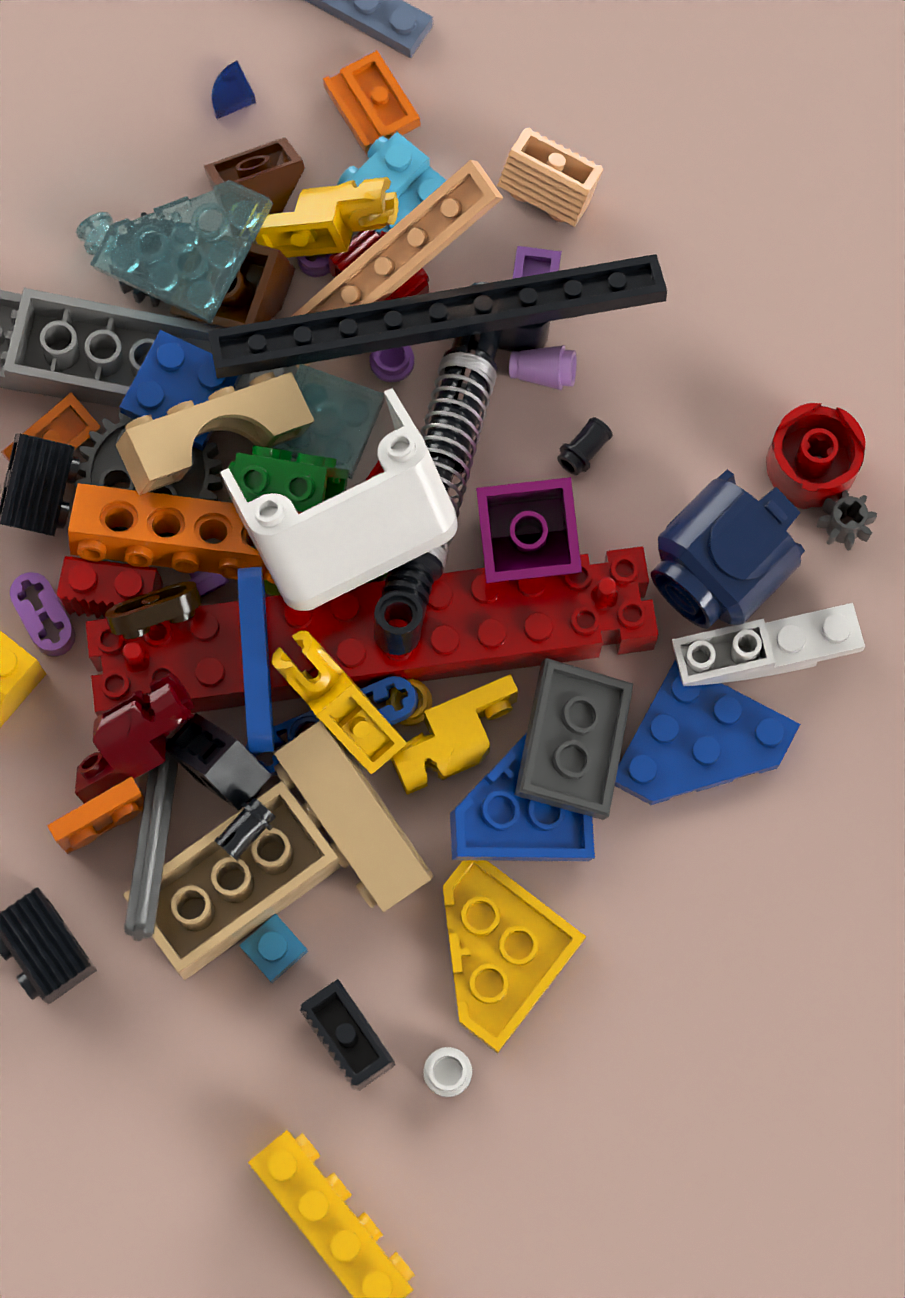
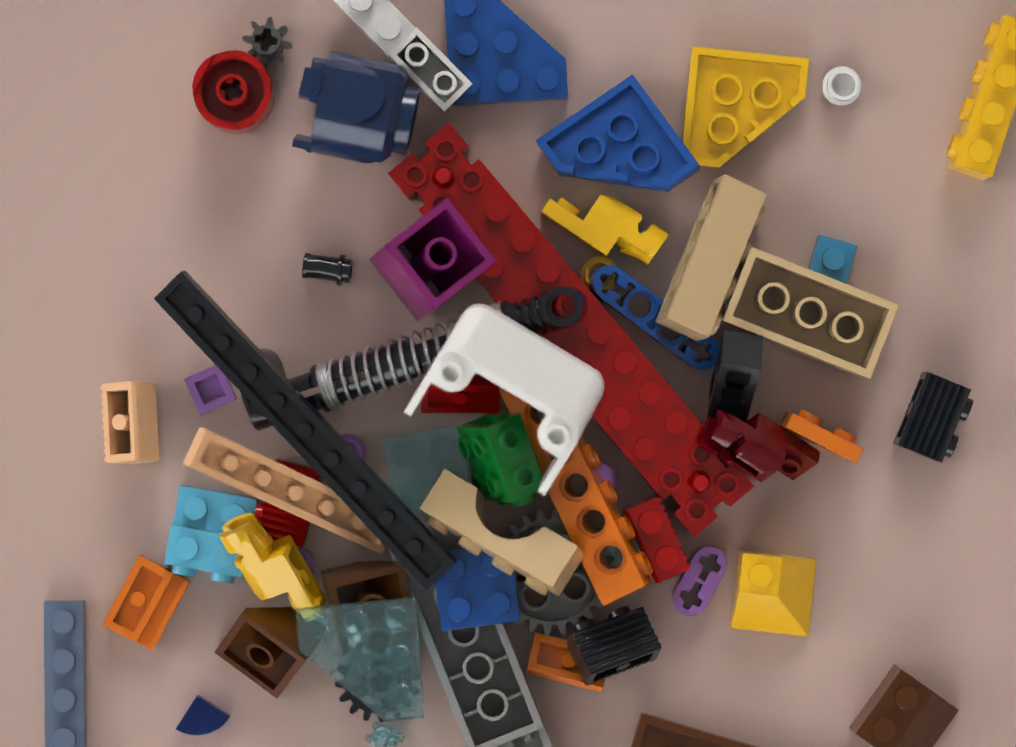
camera: 120 degrees left, 15 degrees up
(151, 849) = (830, 377): dark grey axle -> none
(169, 603) = (660, 488): dark brown plate -> none
(245, 828) = (775, 320): black pin -> none
(255, 660) = (651, 391): blue beam -> none
(340, 704) = (645, 314): yellow plate -> none
(347, 1035) = (864, 165): black brick -> none
(545, 366) = (283, 335): lavender cone -> none
(574, 739) = (558, 138): dark grey tile -> none

